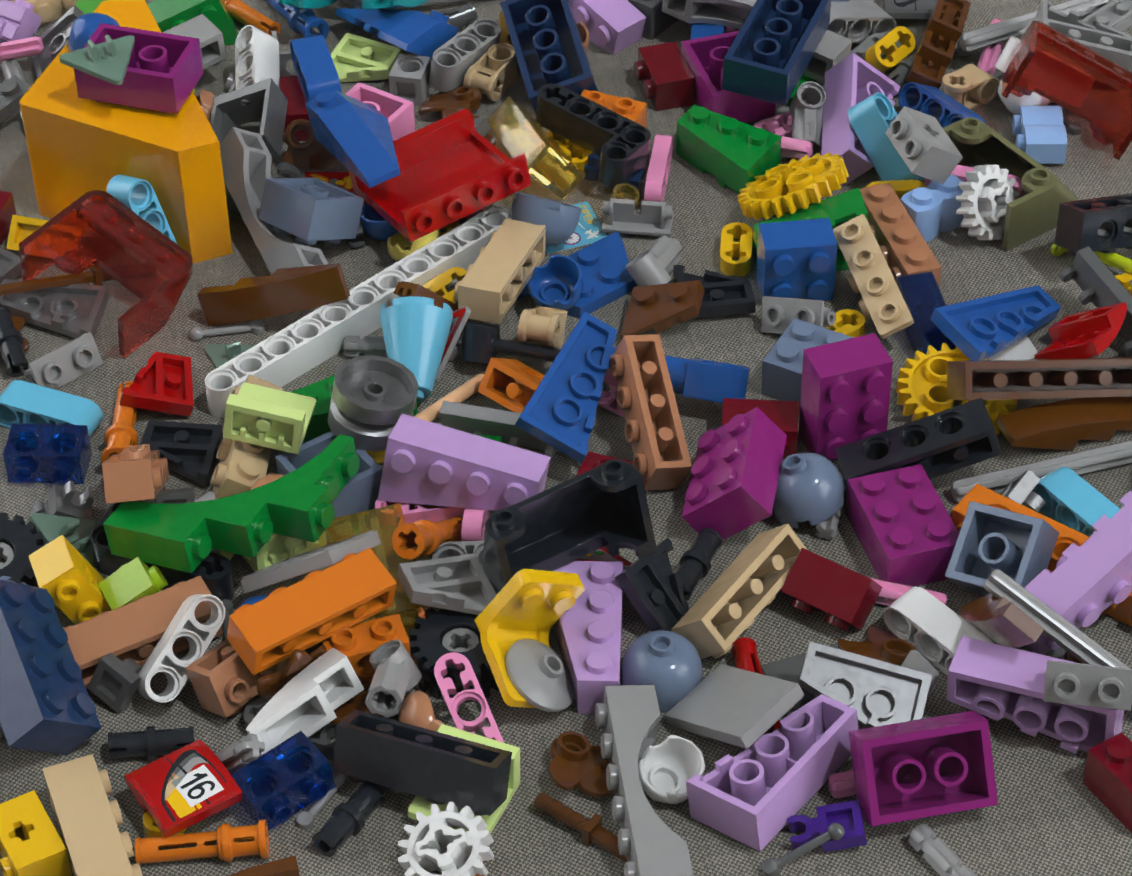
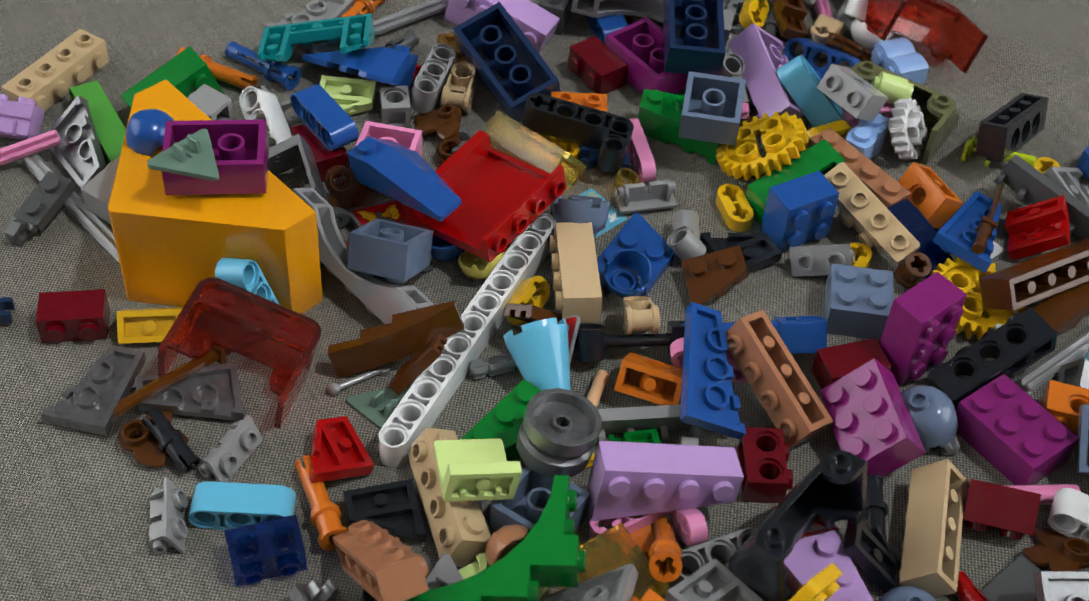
camera: 25 degrees left, 5 degrees up
(285, 316) = (418, 363): none -> reddish brown tile
(743, 132) = (712, 108): none -> sand blue brick
(906, 345) = (912, 270): none -> reddish brown bush
(967, 271) = (930, 194): none -> orange brick
(983, 107) = (849, 47): none -> reddish brown axle
(988, 150) = (893, 87): none -> yellowish green brick
(1005, 315) = (987, 224): none -> reddish brown sword

